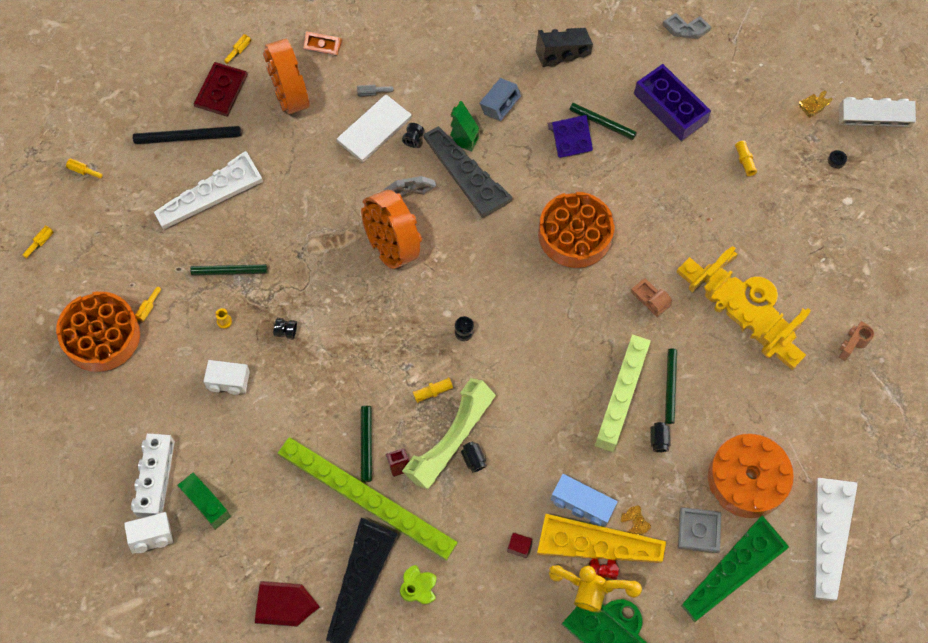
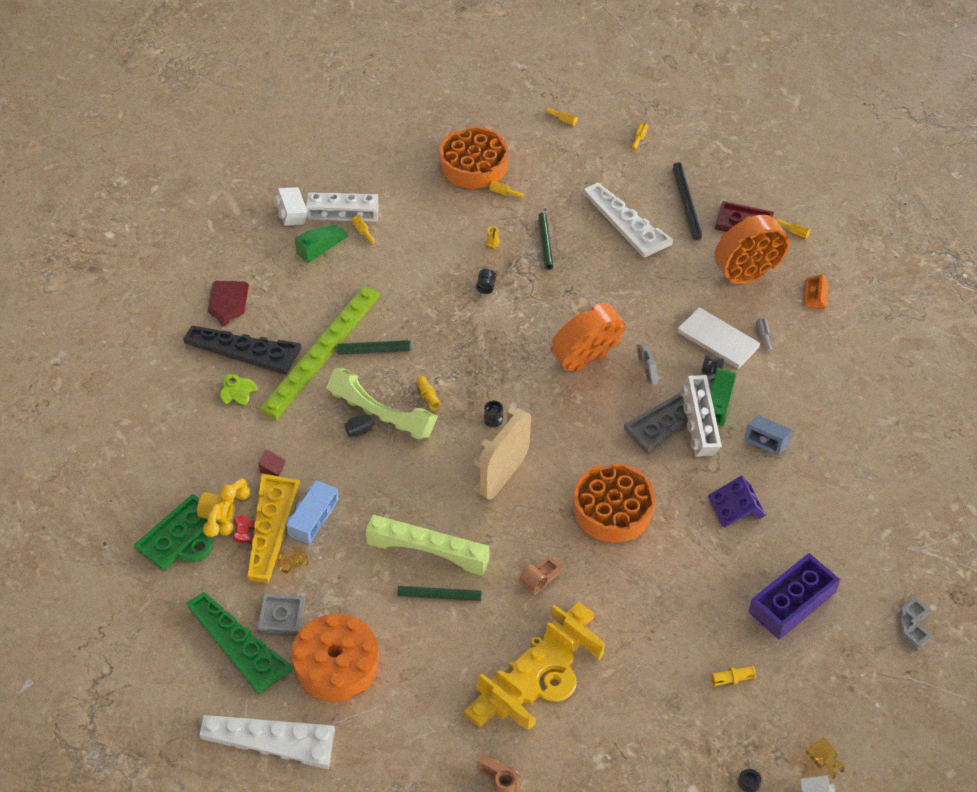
camera: 90 degrees right, 15 degrees down
(188, 455) = (362, 228): none -> yellow axle
(226, 377) = (434, 243): white brick -> none
(397, 461) = (359, 369): dark red slope -> none
(483, 146) = (700, 416): none -> white brick
(537, 309) = (504, 454): none -> tan tile
(562, 46) = (850, 491): black wedge -> none
(601, 120) = (761, 535): dark green piece -> none
(660, 437) = (379, 579): black brick -> none

